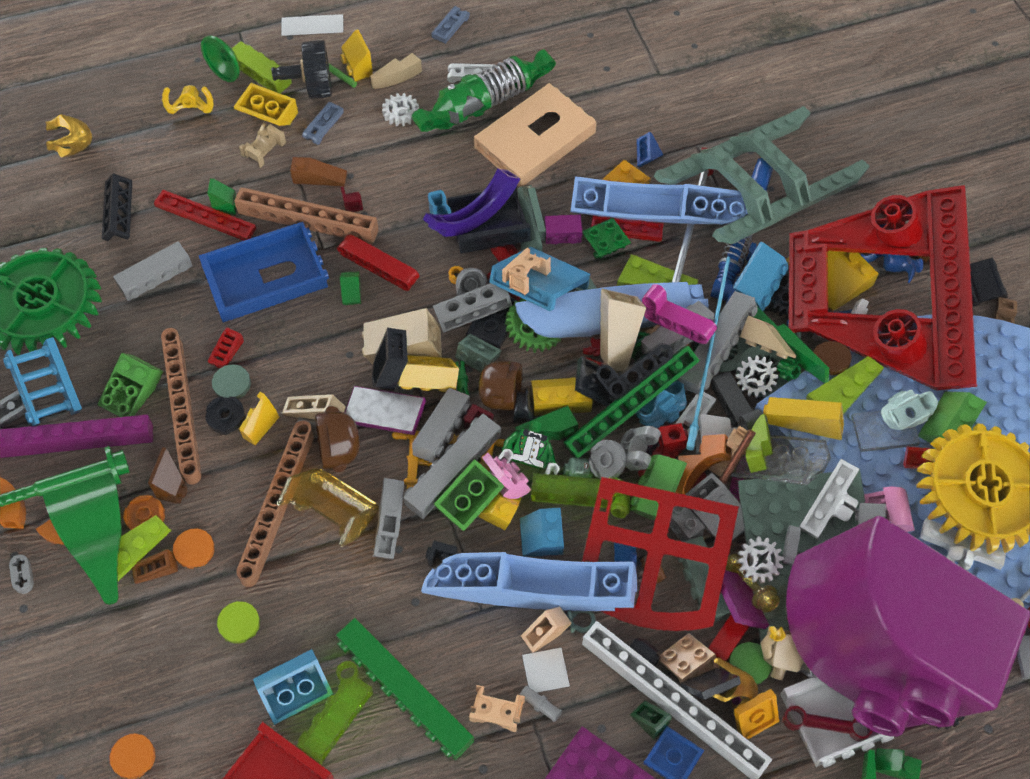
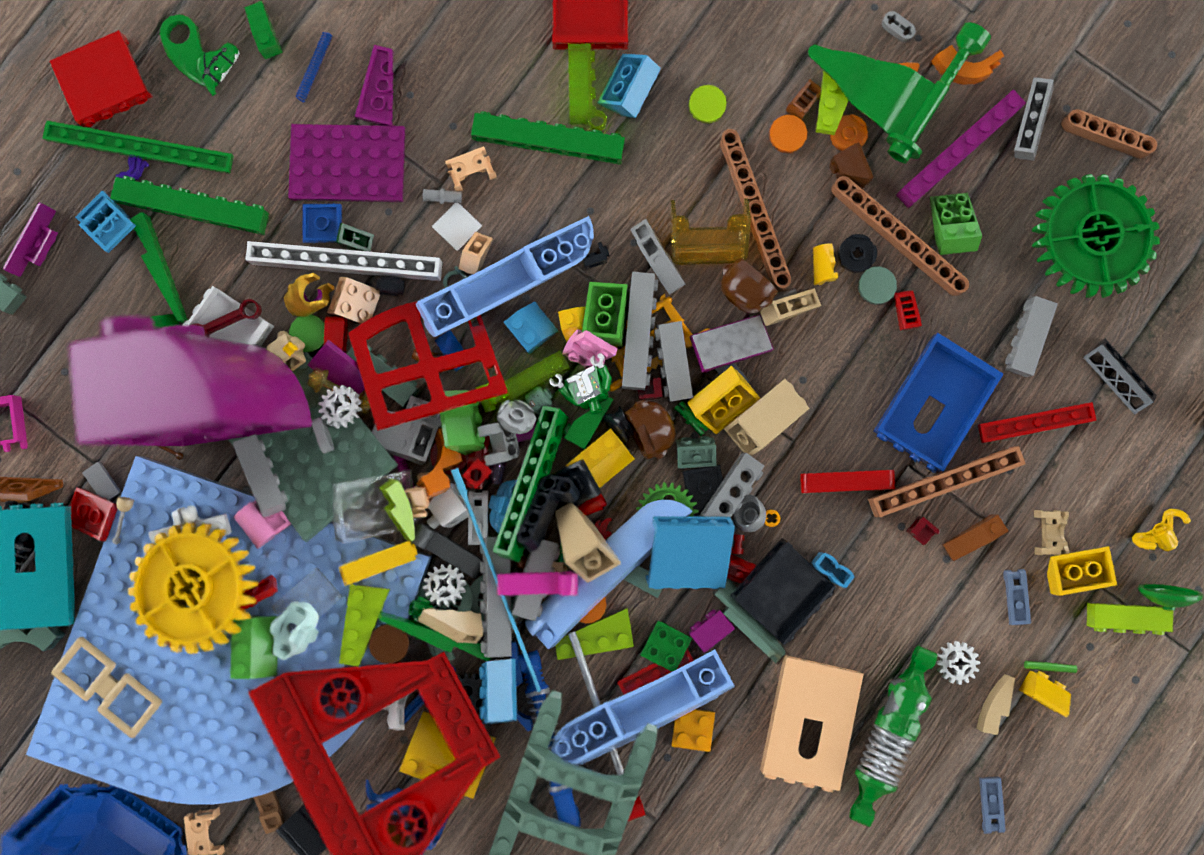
camera: 145 degrees right, 25 degrees up
(55, 368) = (1022, 185): dark azure fence -> none
(221, 197) = (1036, 446): green slope -> none
(312, 25) = (1126, 710): white sticker -> none
(313, 70) = (1071, 641): black wheel -> none
(350, 288) = (852, 442): green slope -> none
(389, 359) = (754, 373): black window -> none
(465, 69) = (926, 756): white plate -> none
(479, 210) = (797, 587): dark purple arch -> none
(518, 269) = (704, 539): light nougat piece -> none
(647, 149) = (695, 779): blue slope -> none
(710, 683) = (321, 283): black tile -> none
(737, 456) = (408, 482): copper bar -> none
(757, 714) = (274, 296): light orange plate -> none
(832, 500) = (309, 493): white plate -> none

